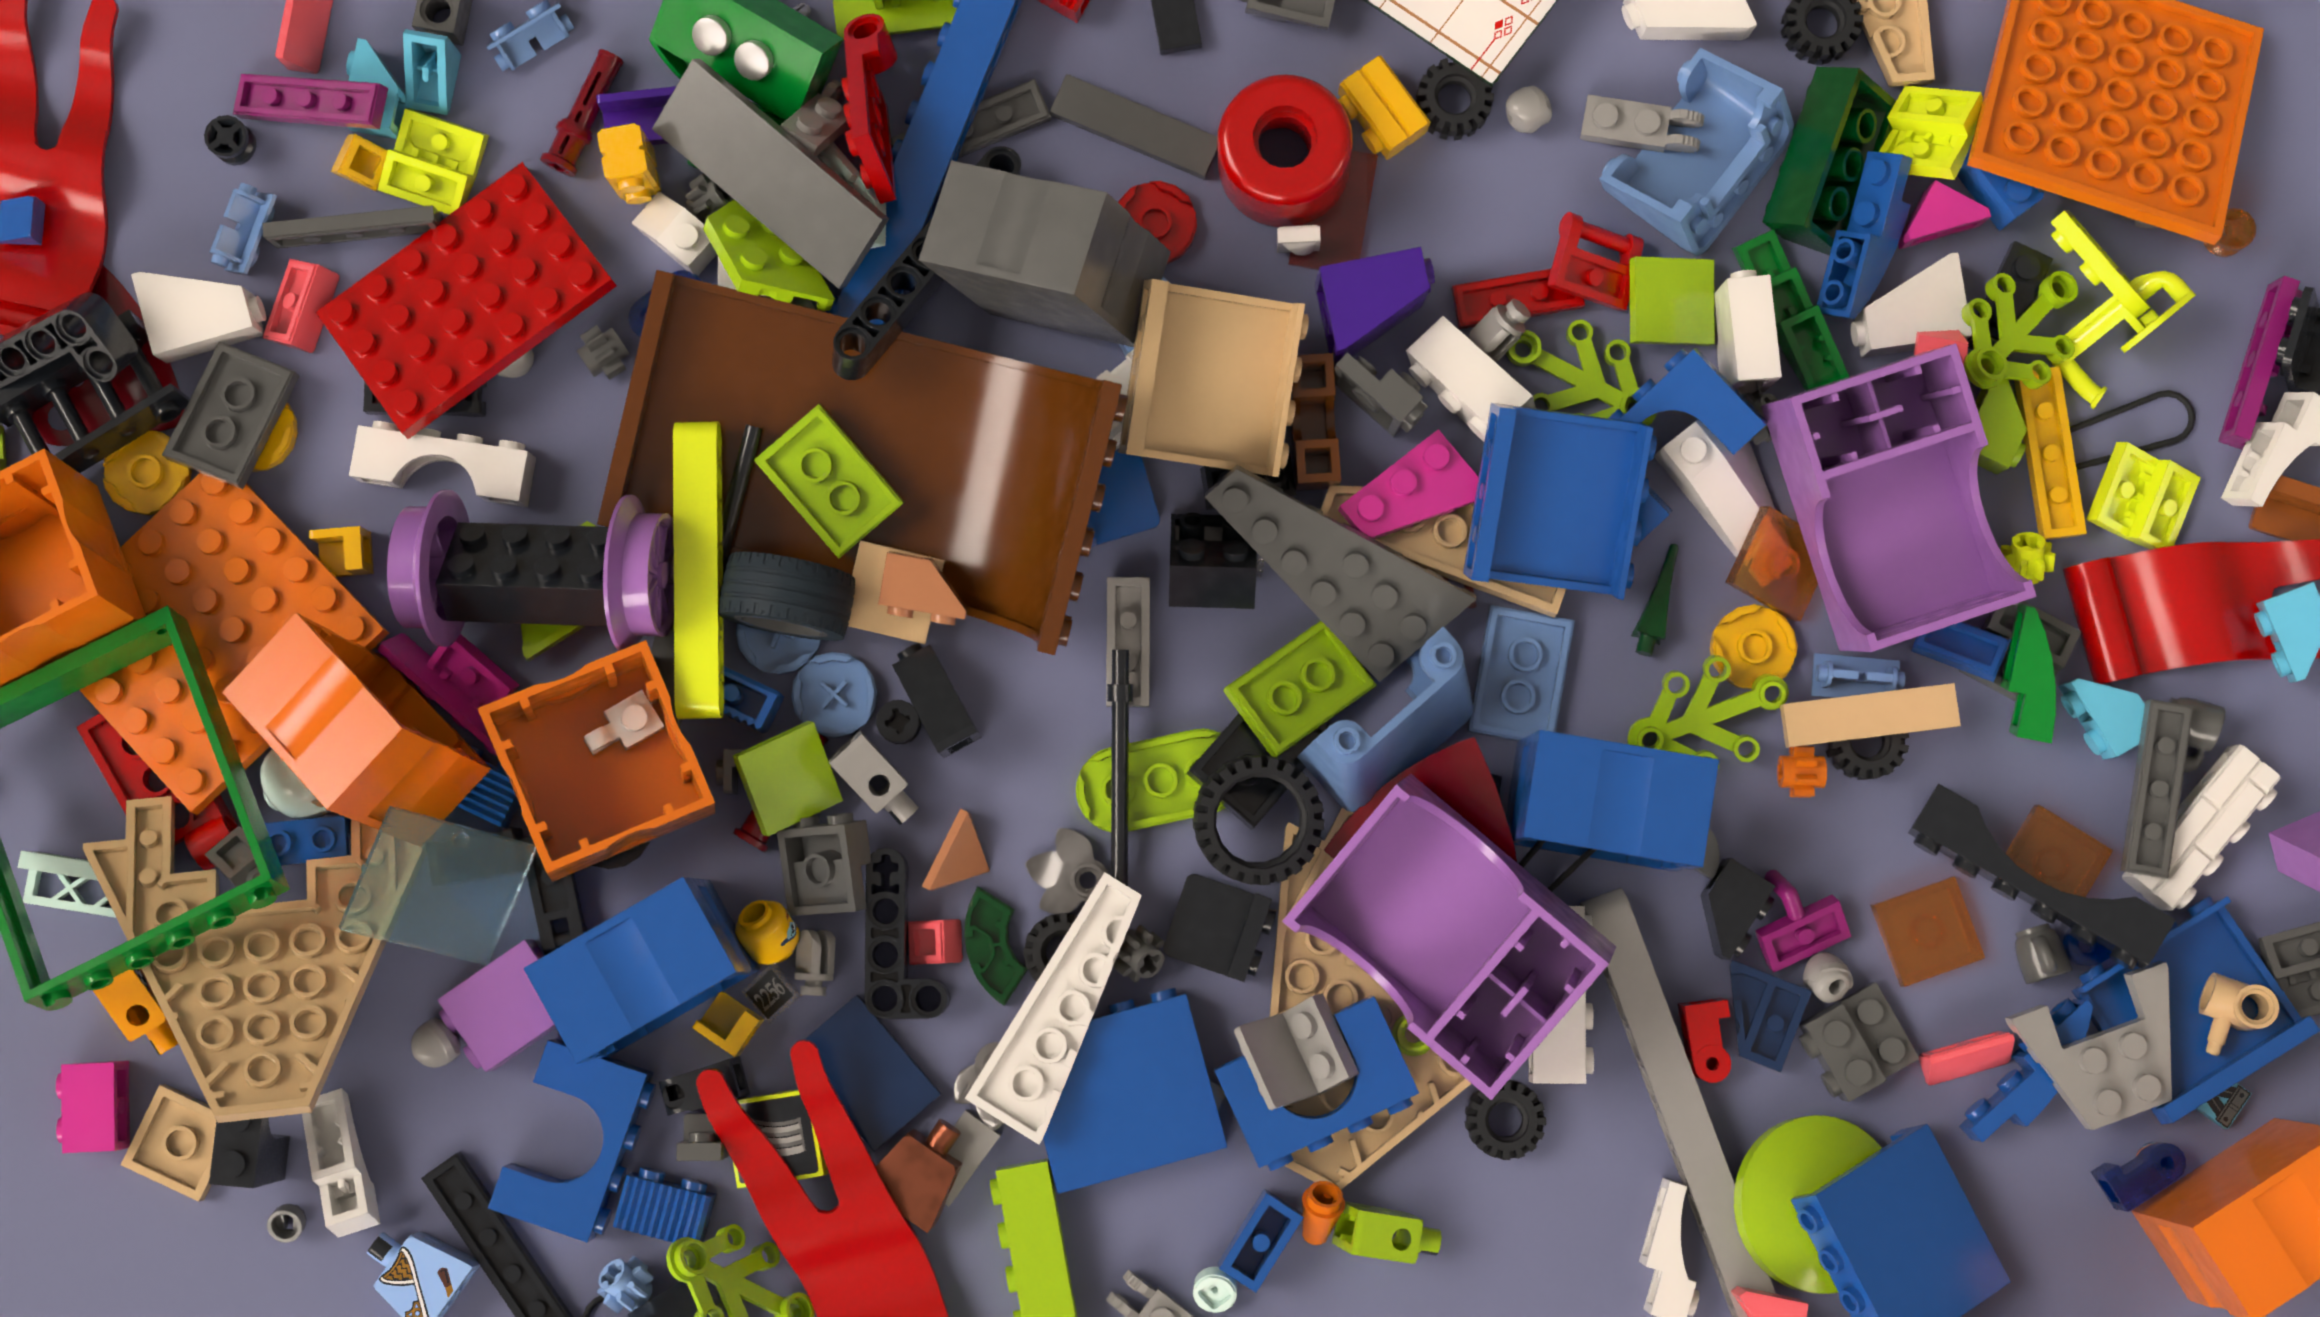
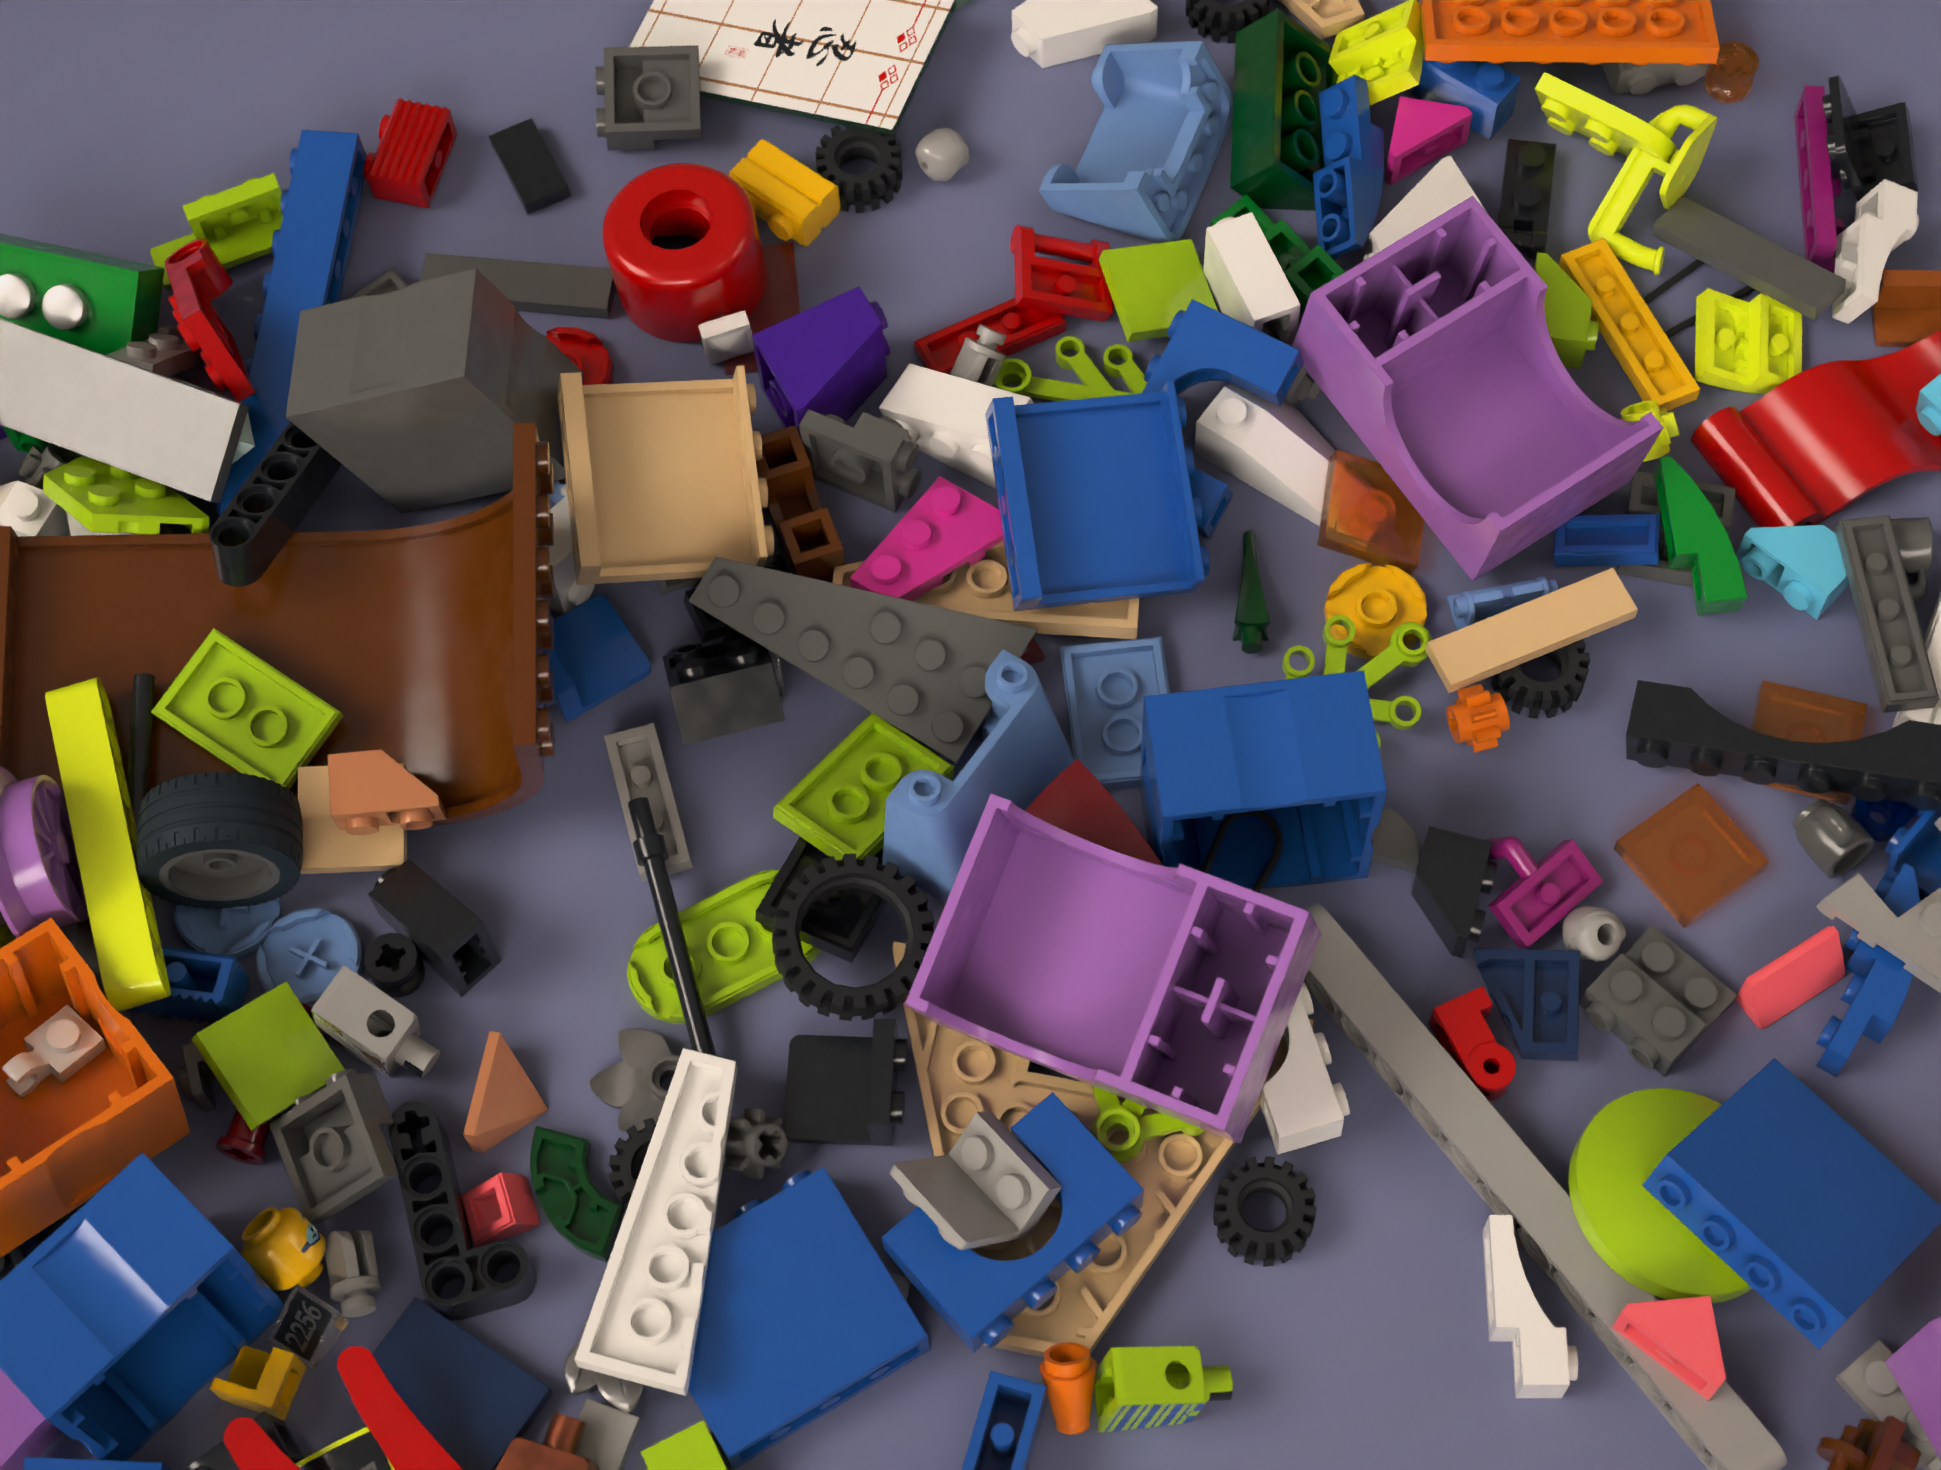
camera: 10 degrees left, 20 degrees down
(1638, 125) = (1069, 138): light grey hinge -> none
(2054, 292) = (1569, 171): lime plant -> none
(2173, 422) = (1749, 258): none -> dark grey tile

